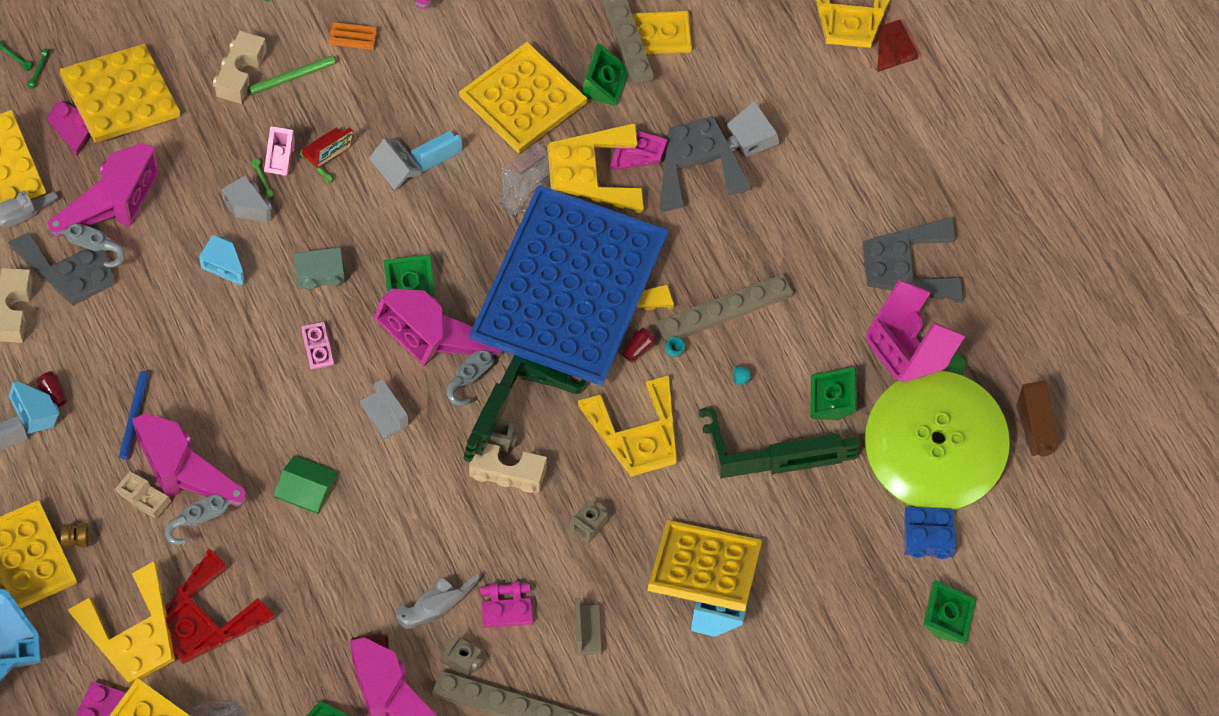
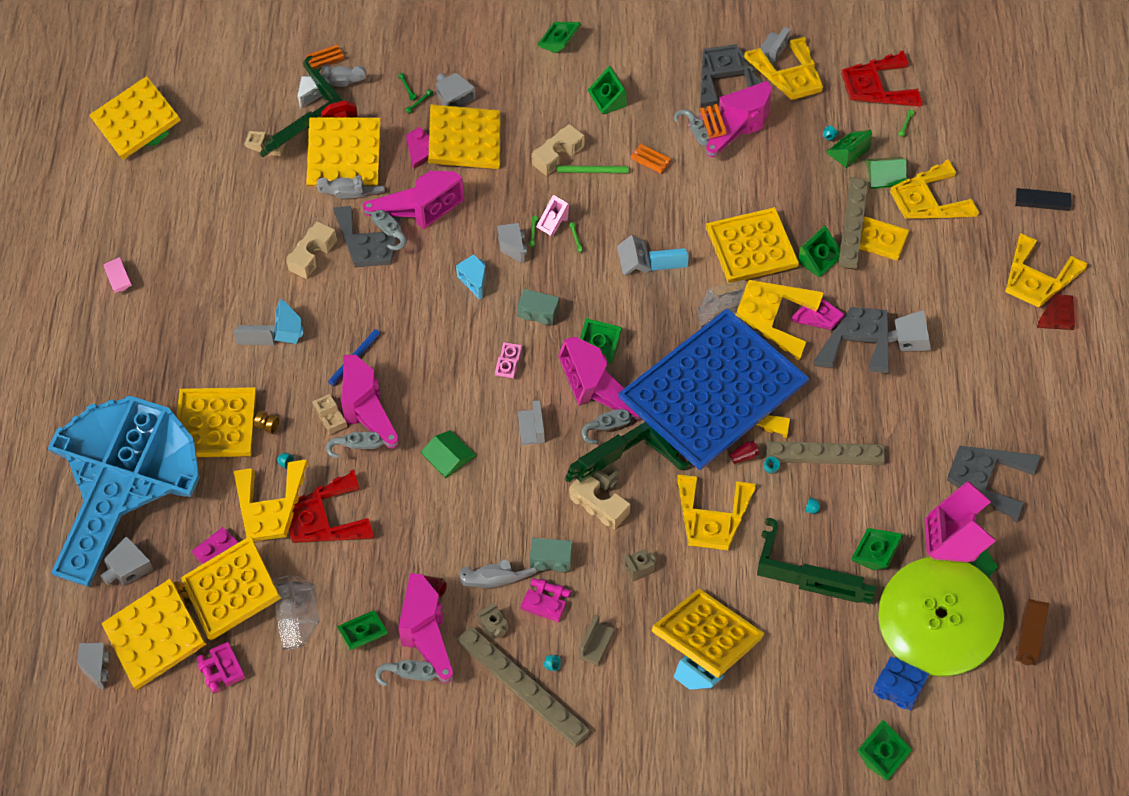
camera: 30 degrees right, 5 degrees down
(50, 384) = (308, 315): dark red cone -> none
(75, 39) = (454, 90): none -> light grey torso
(121, 571) = (284, 458): none -> teal hinge
(328, 146) = (590, 226): panel -> none
(486, 552) = (551, 554): none -> sand green brick
(551, 672) = (549, 659): none -> teal hinge

